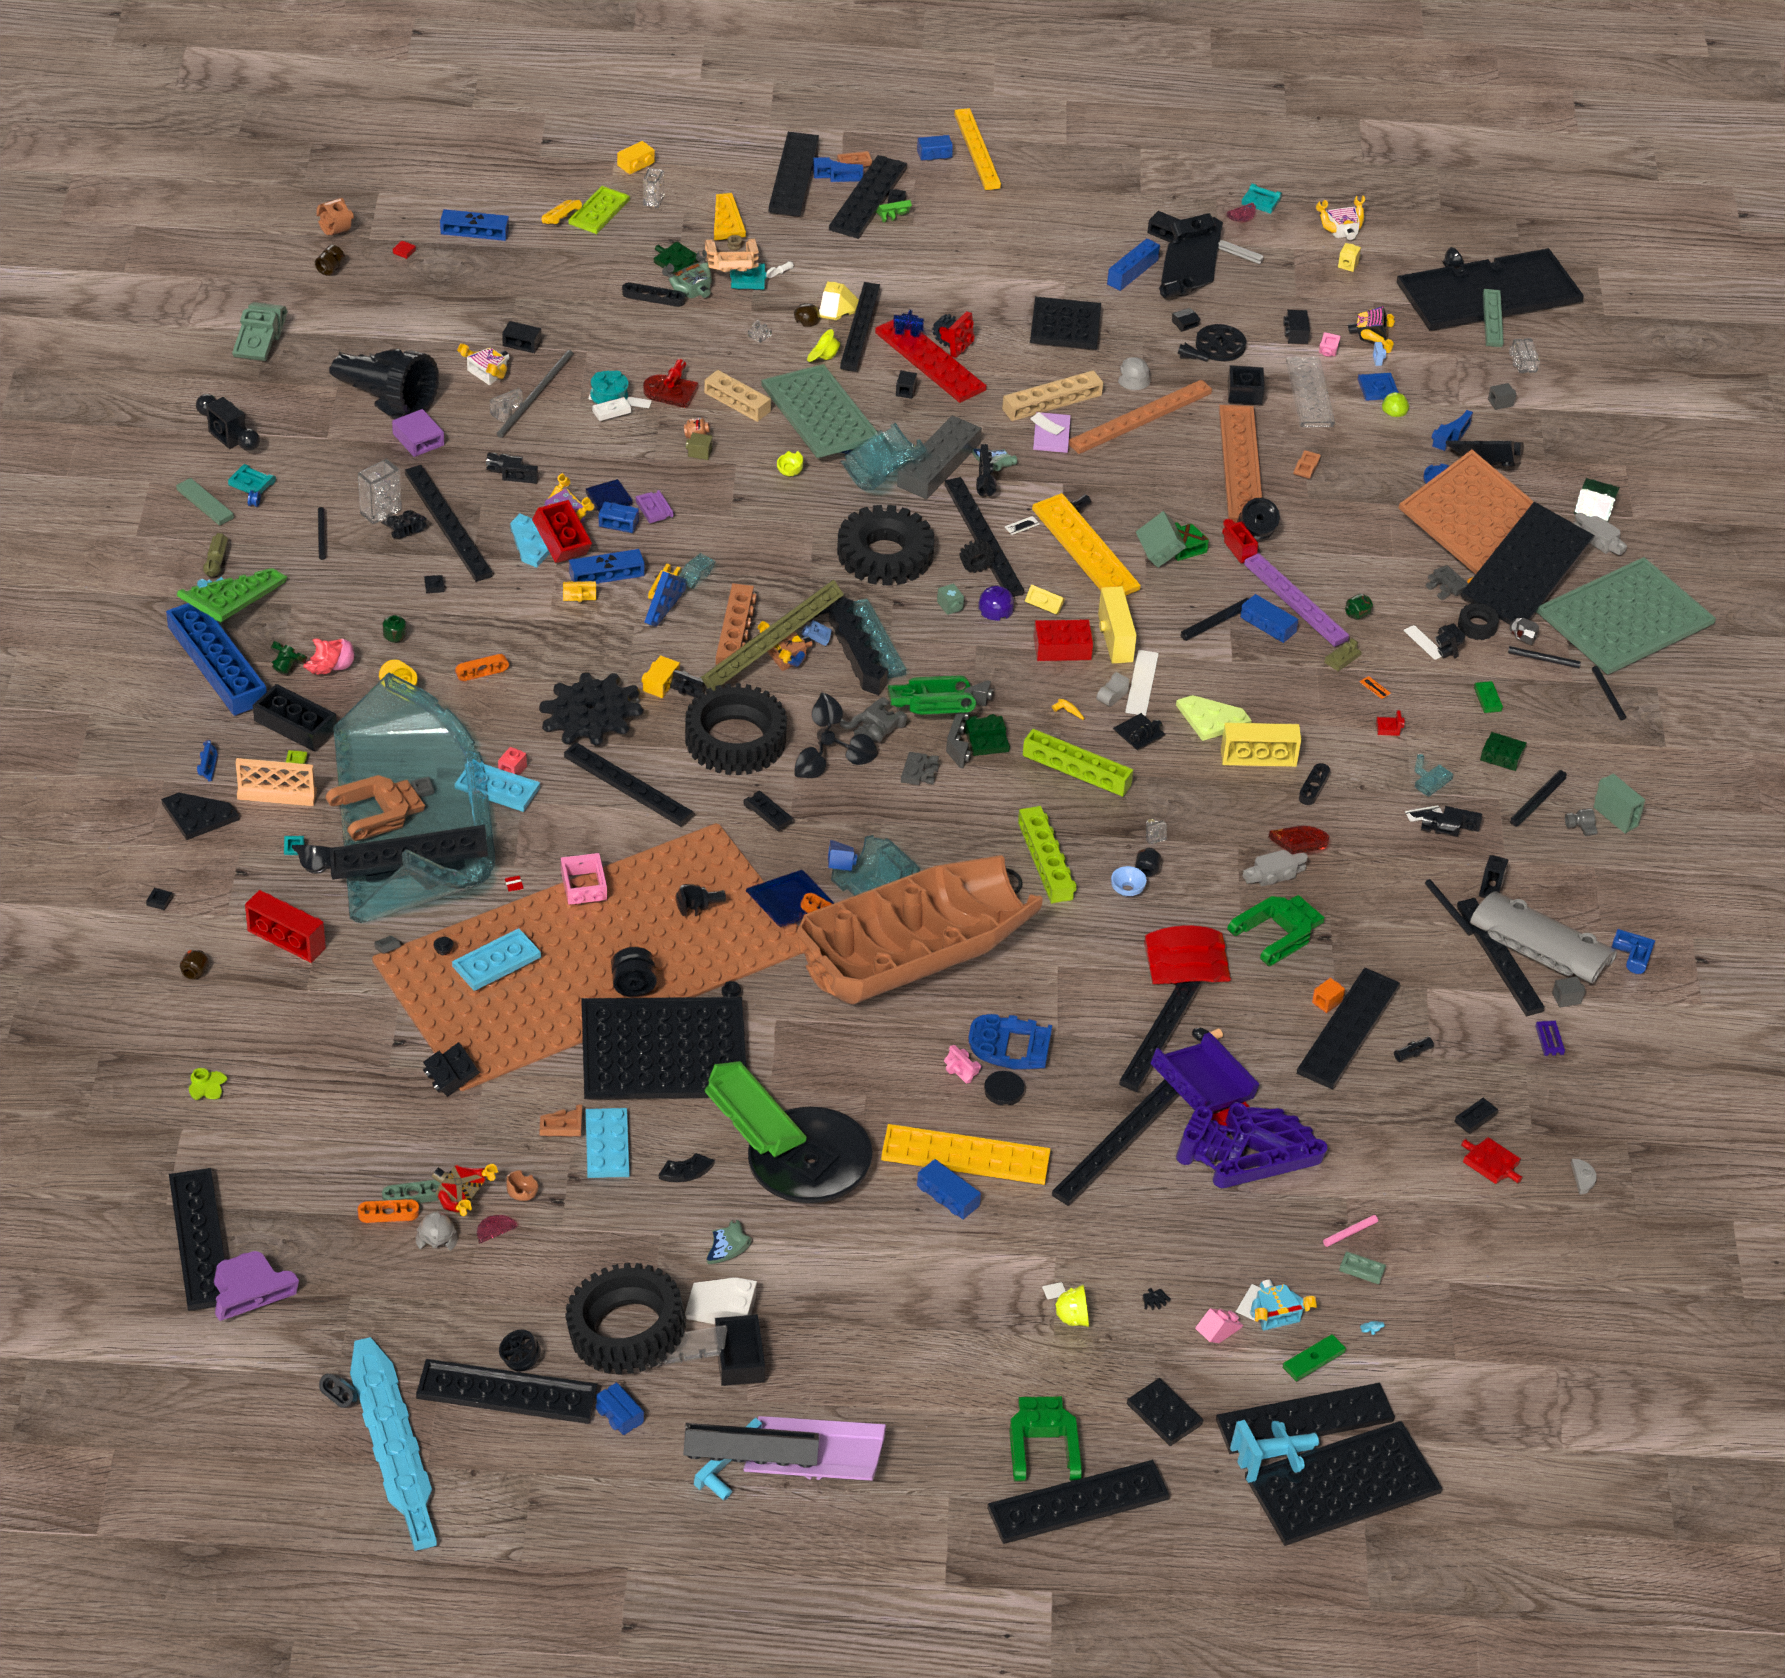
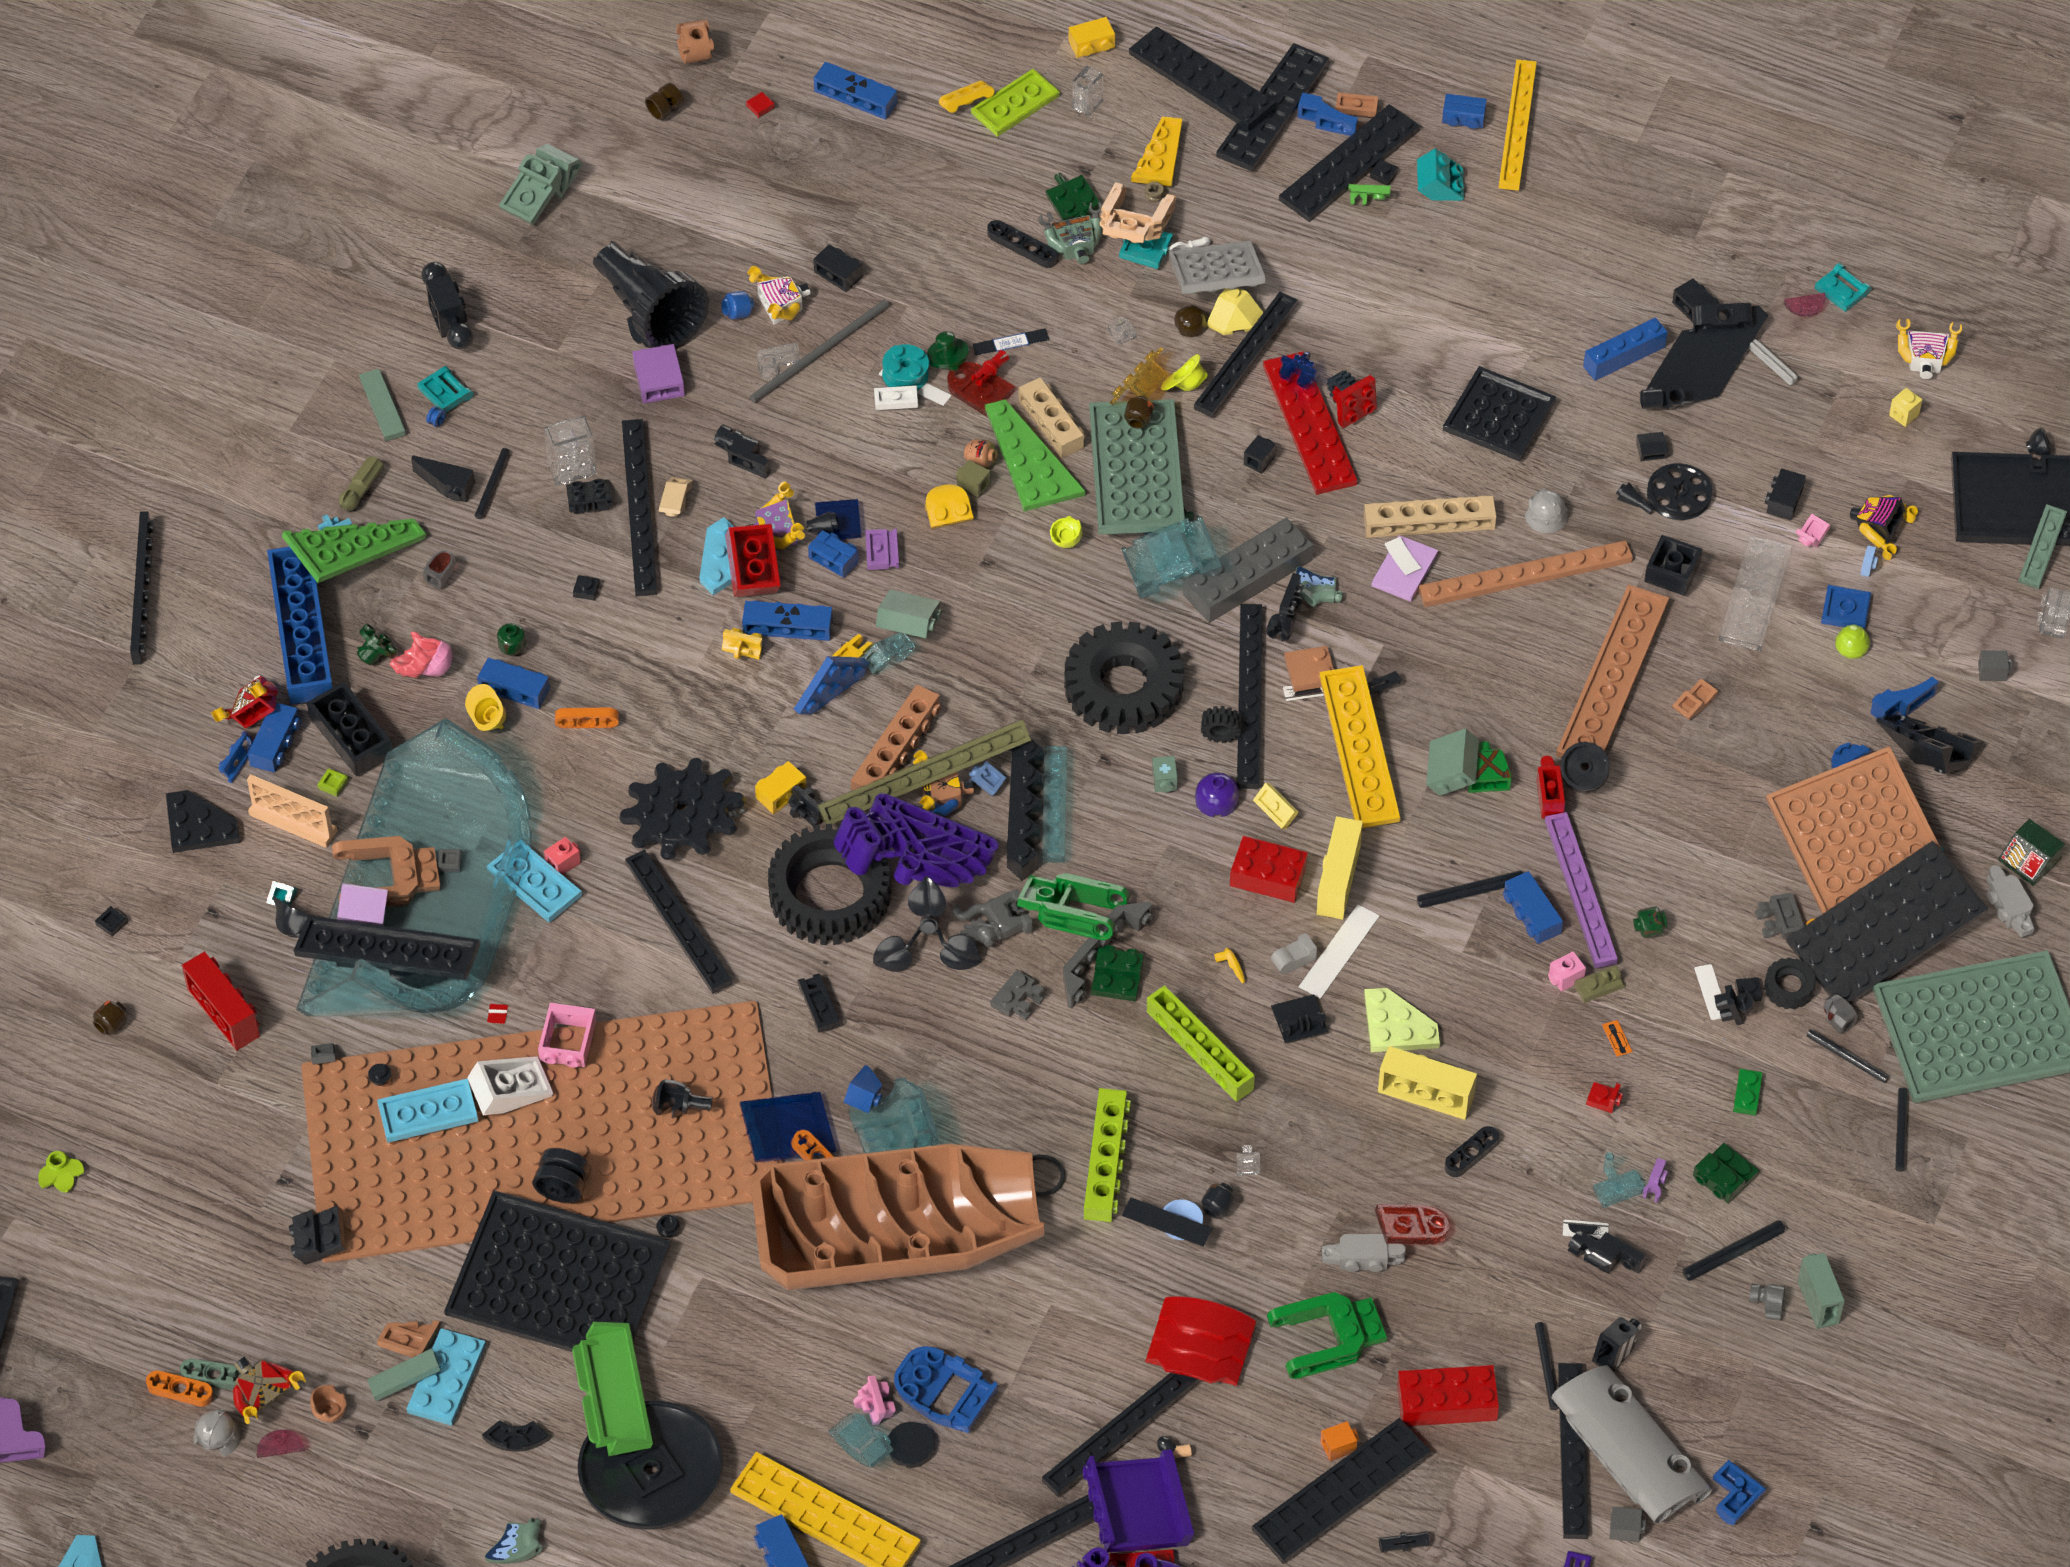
camera: 25 degrees right, 10 degrees up
(67, 659) = (141, 594): none -> black plate
(205, 717) = (251, 703): none -> red torso
(233, 738) = (274, 738): none -> blue brick
(281, 536) = (448, 479): none -> black slope
(310, 597) = (439, 569): none -> flat silver rock
(372, 827) = (362, 904): none -> lavender slope
(419, 657) = (515, 682): none -> blue brick
(456, 376) = (737, 305): none -> blue head
(474, 508) = (674, 496): none -> tan slope
(553, 924) = (508, 1084): none -> white slope
(573, 1148) = (404, 1374): none -> sand green tile
(602, 496) = (826, 522): none -> black cone
(637, 370) = (947, 352): none -> dark green plate
(671, 360) = (1010, 341): none -> sticker
(690, 468) = (947, 506): none -> yellow slope
(700, 540) = (908, 613): none -> sand green brick
(732, 165) = (1202, 78): none -> black plate
(741, 431) = (1031, 465): none -> bright green wing
(795, 354) = (1145, 381): none -> clear yellow bracket
(795, 678) = (921, 840): none -> dark purple beam
(805, 373) = (1138, 412): none -> dark brown head
(812, 274) = (1216, 267): none -> light grey plate
(940, 190) = (1440, 177): none -> teal slope
(966, 1093) = (861, 1440): none -> clear light blue brick
(1017, 509) = (1305, 667): none -> nougat plate
(1119, 884) = (1167, 1221): none -> black sticker
(1317, 651) = (1566, 970): none -> bright pink brick
(1391, 943) = (1447, 1395): none -> red brick
(1458, 766) = (1657, 1176): none -> medium lavender plate

